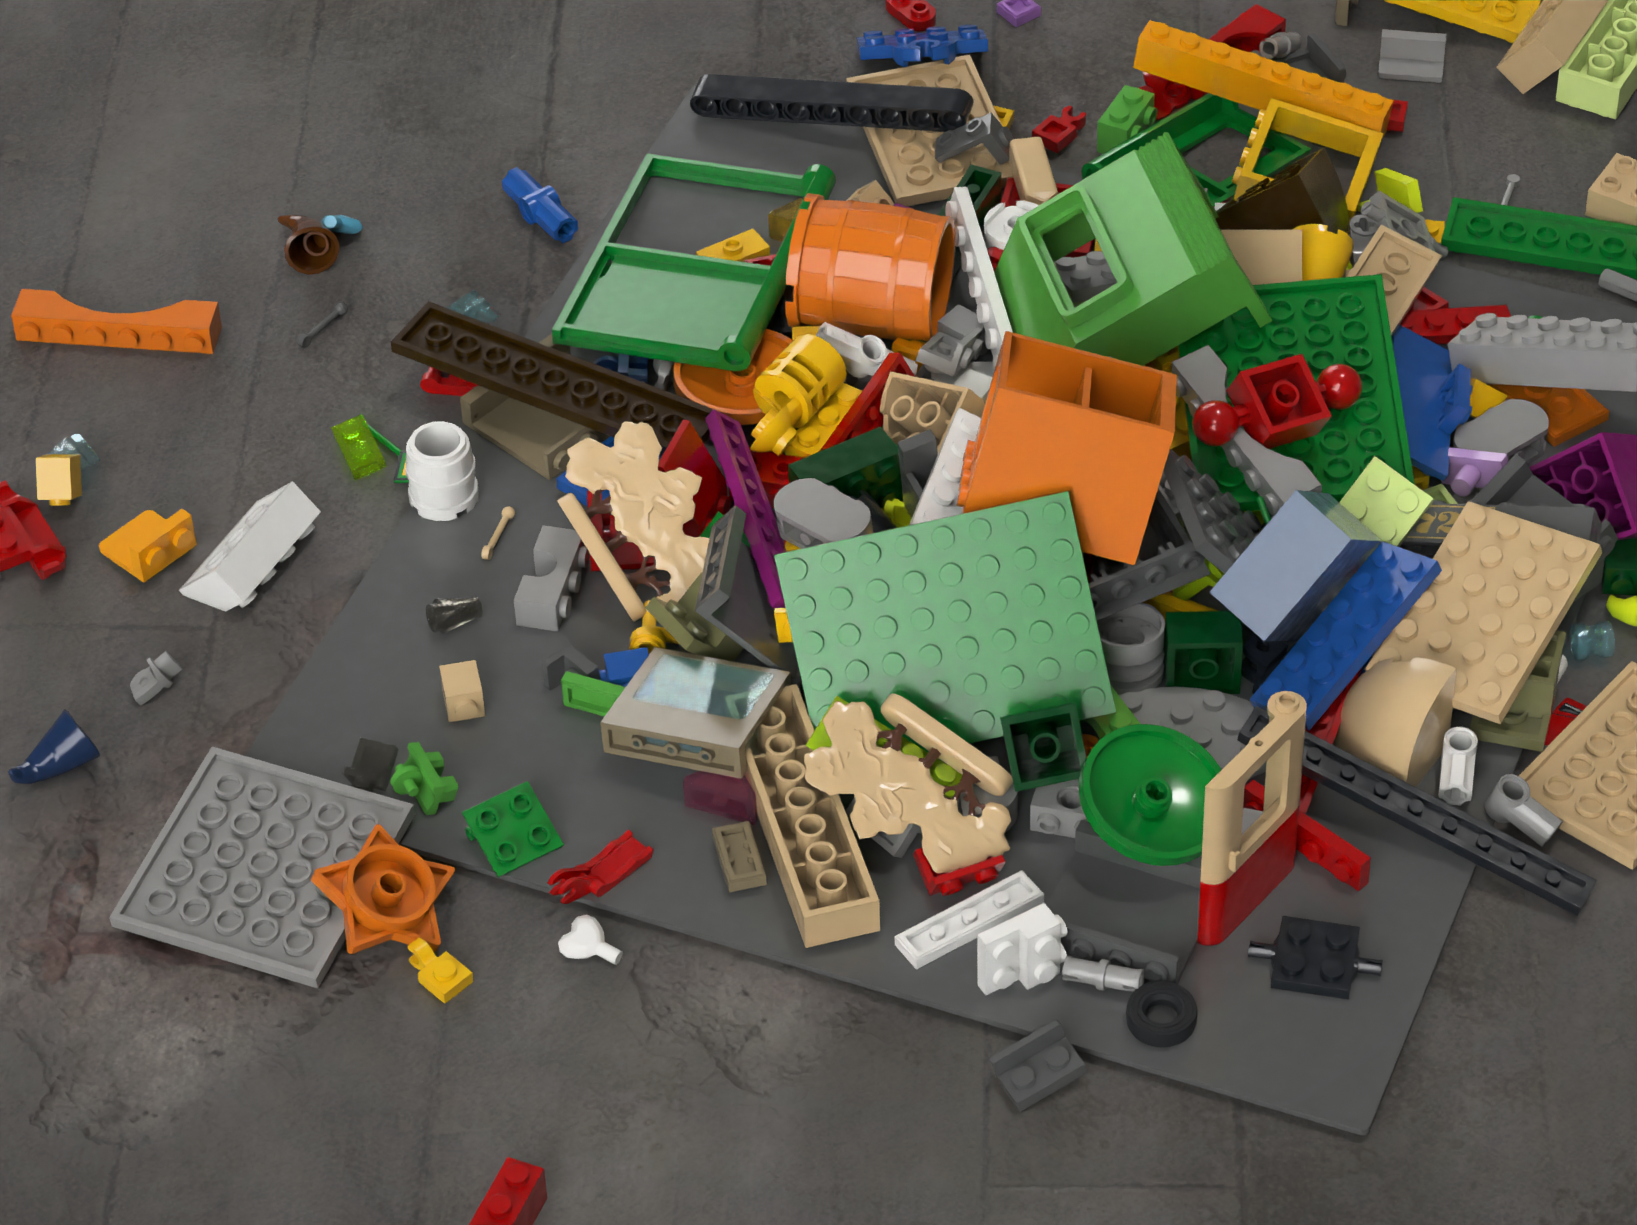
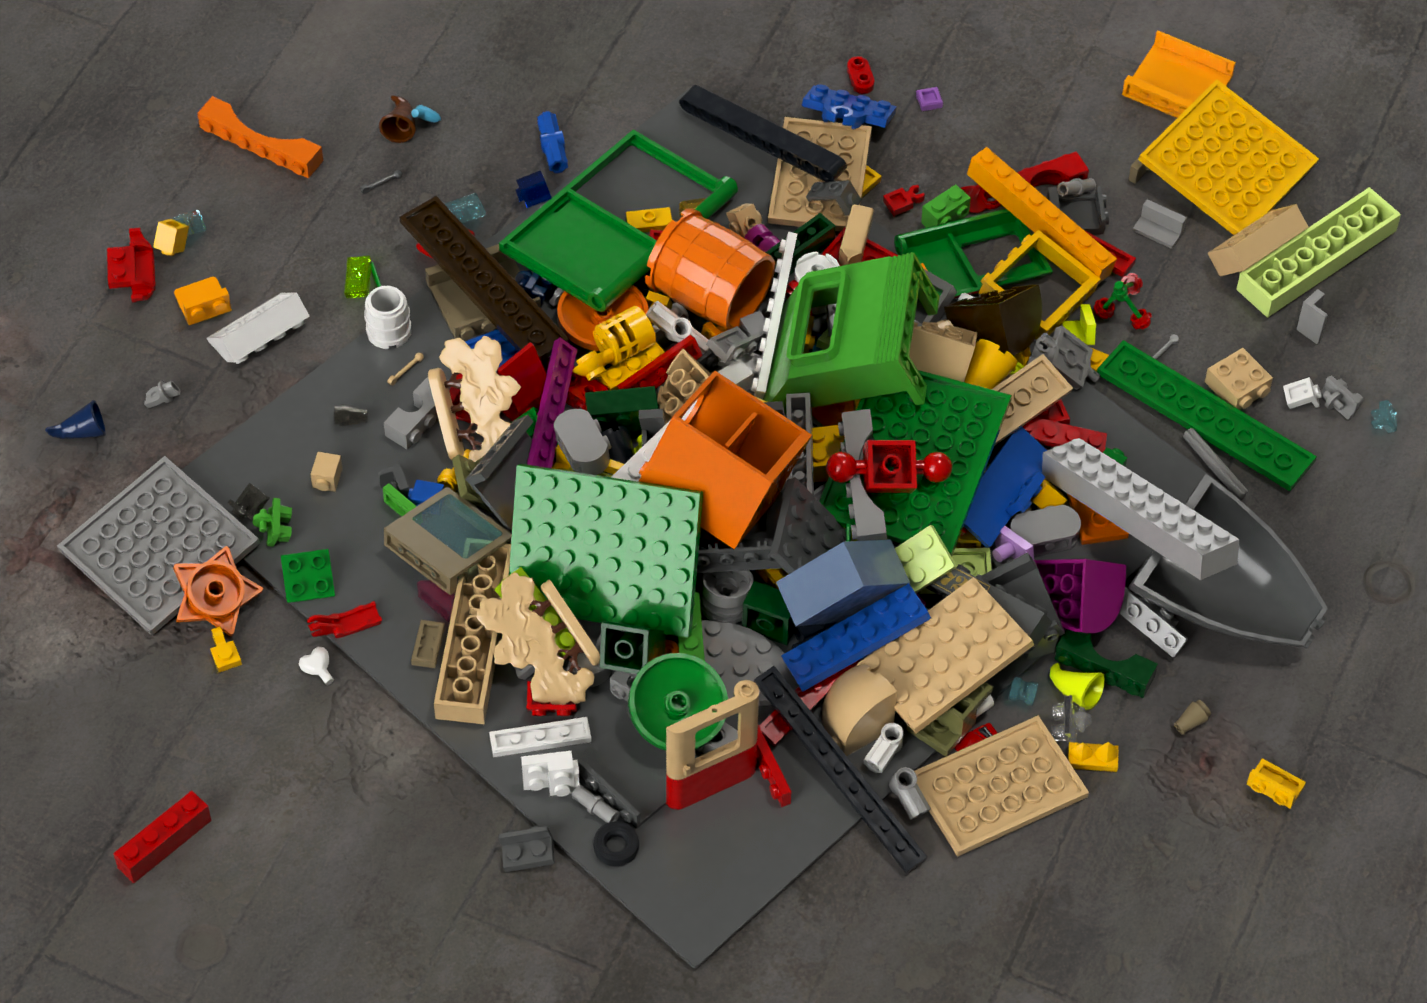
camera: 20 degrees right, 10 degrees up
(549, 264) = (533, 189): none -> clear blue brick
(1315, 957) = (727, 842): black plate -> none
(1421, 137) = (1128, 285): none -> red plant

